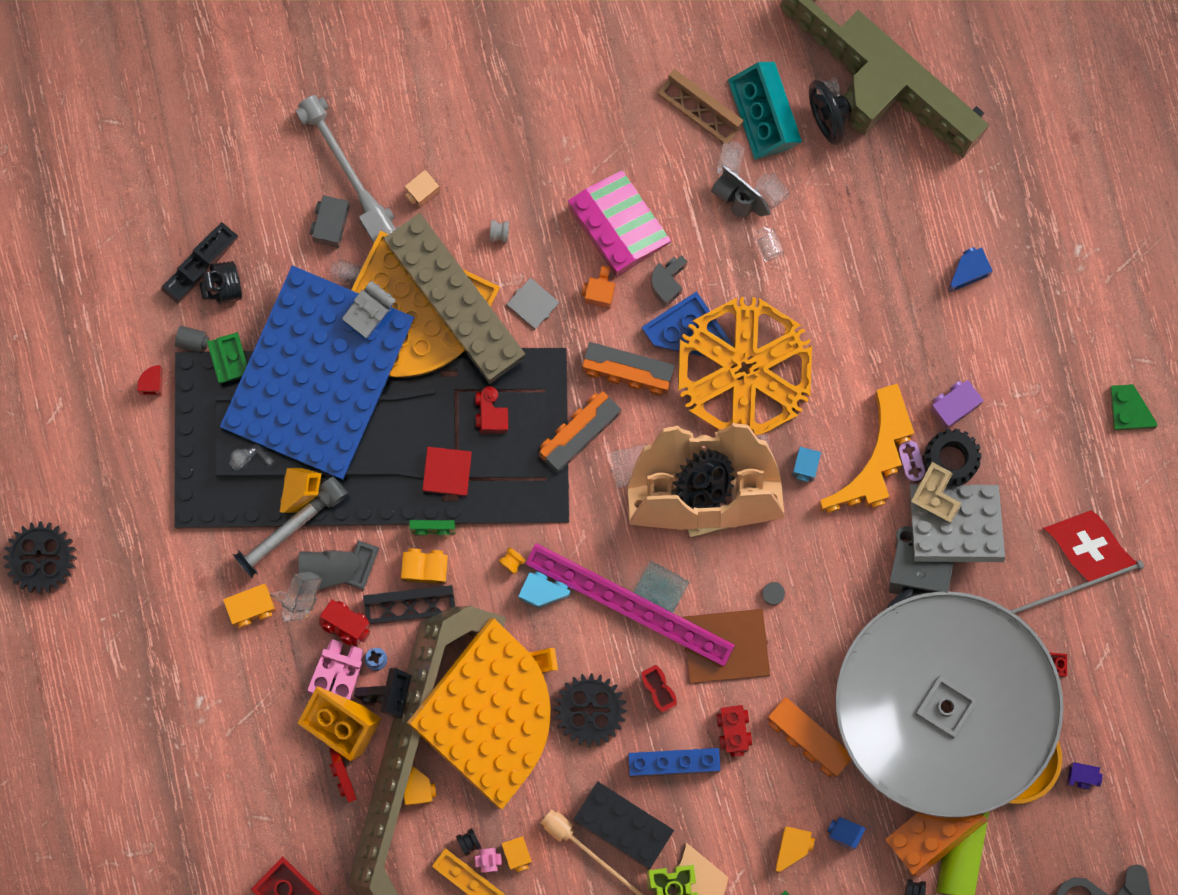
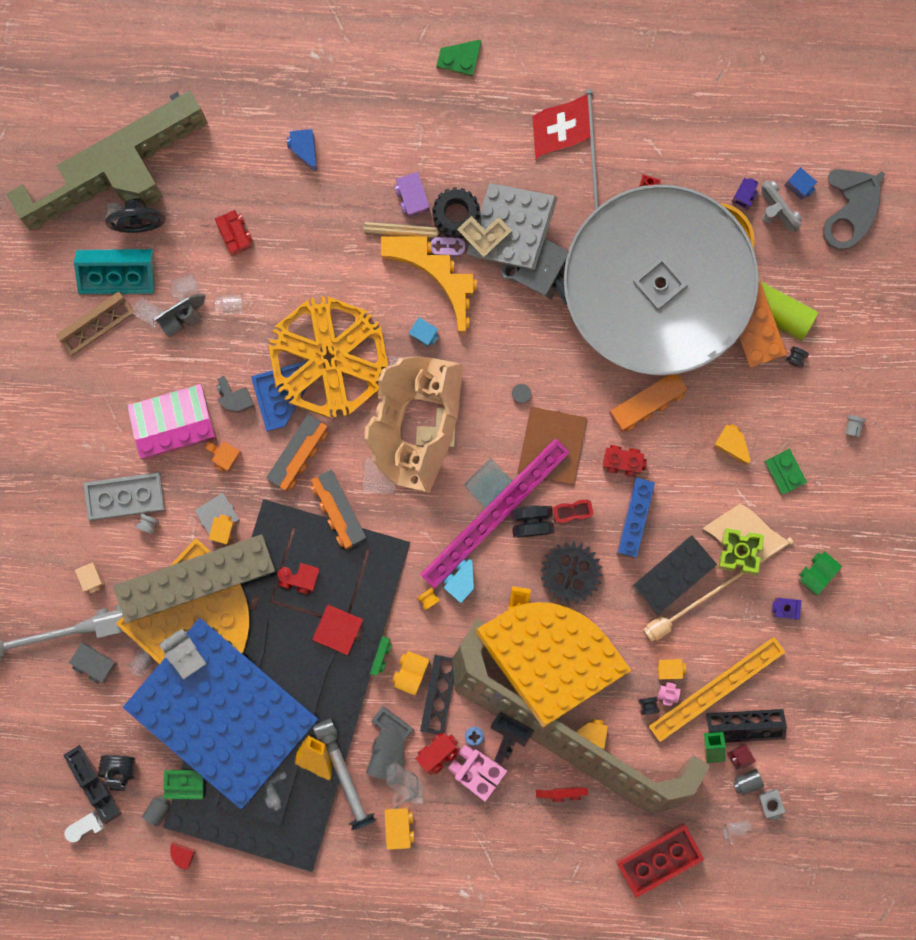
camera: 70 degrees left, 5 degrees up
(151, 266) = (77, 830): none -> white leg
(339, 722) = (520, 782): light orange slope -> none
(518, 313) = (222, 529): none -> light orange brick
(521, 198) = (124, 496): none -> light grey tile
(635, 646) = (532, 517): none -> black wheel
(705, 480) = (415, 419): black gear -> none
(845, 833) = (735, 397): blue slope -> none
(849, 223) = (233, 232): none -> red brick
(913, 404) = (400, 230): none -> tan axle
(1078, 816) = (779, 207): none -> light grey shield
(1116, 836) = (801, 183): none -> blue brick

